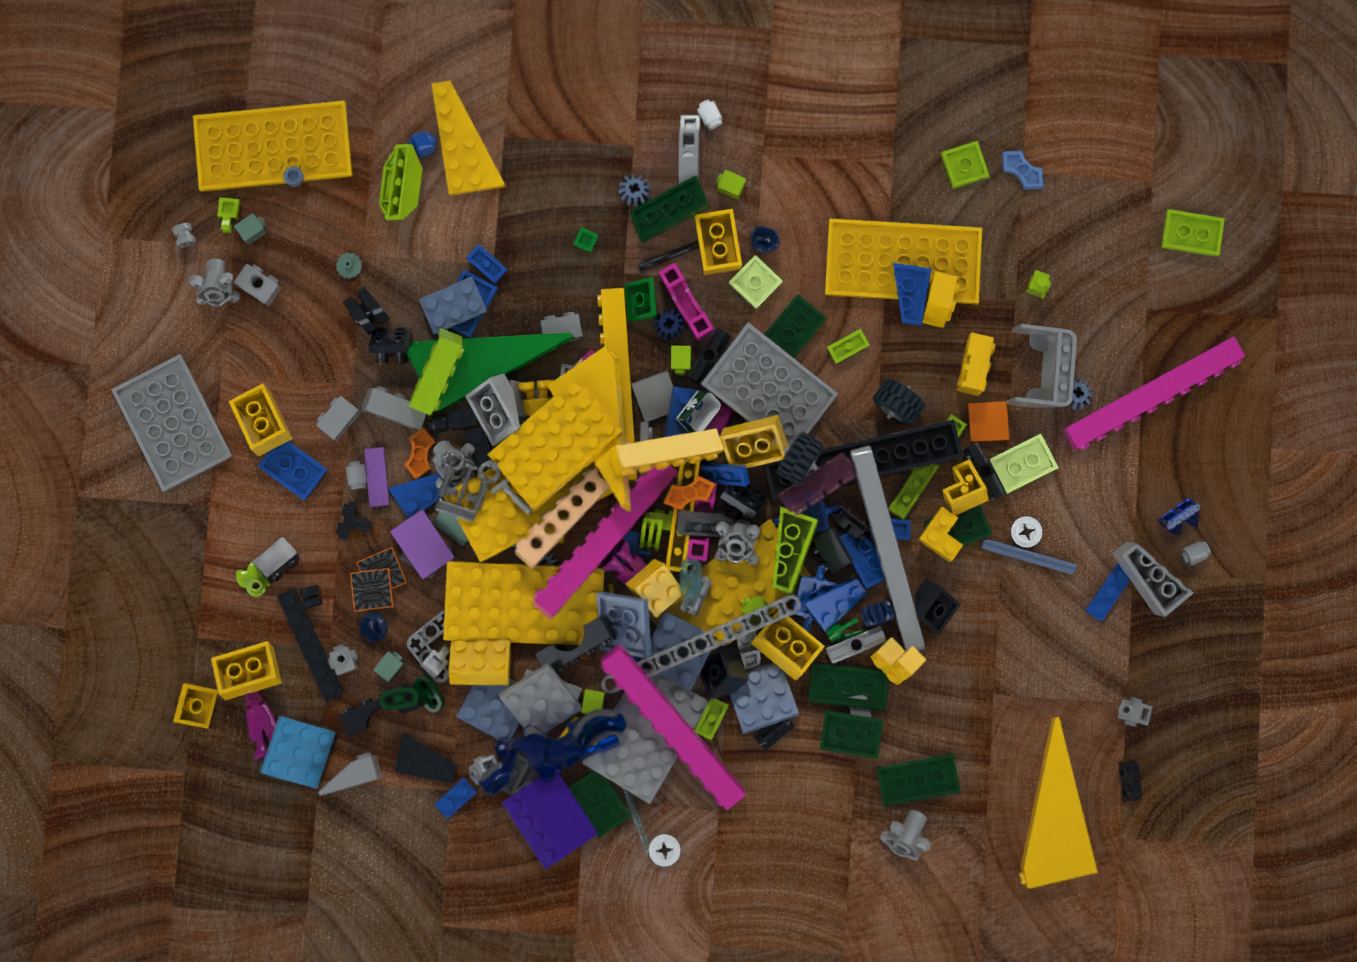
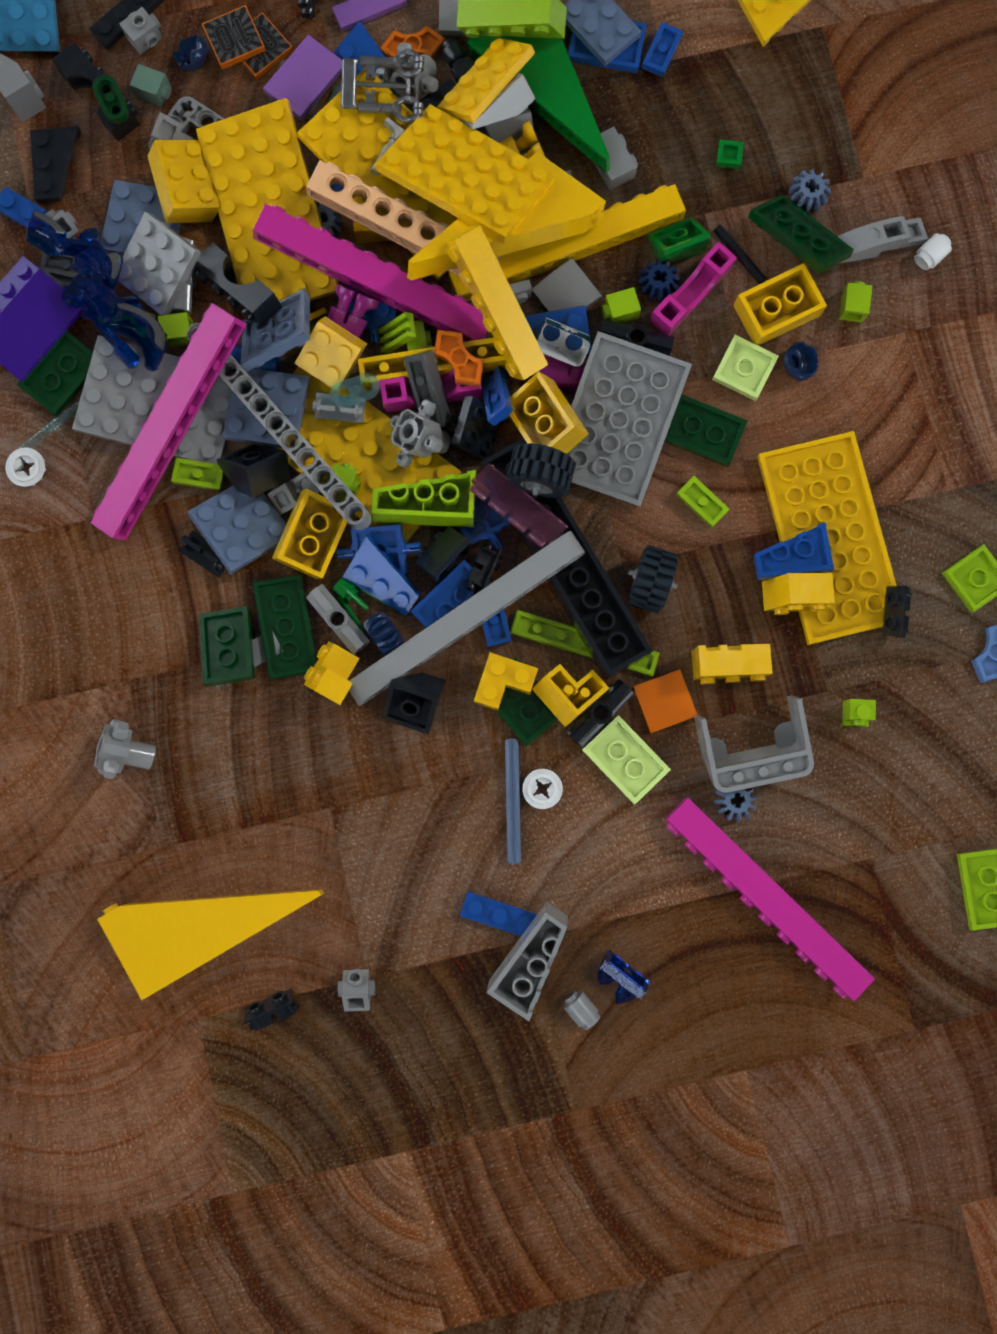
camera: 75 degrees right, 0 degrees up
(429, 693) = (132, 140): dark green plate -> none
(481, 406) = (486, 79): none -> yellow plate
(918, 779) = (197, 745): dark green tile -> none
(981, 236) = (896, 603): none -> black hinge

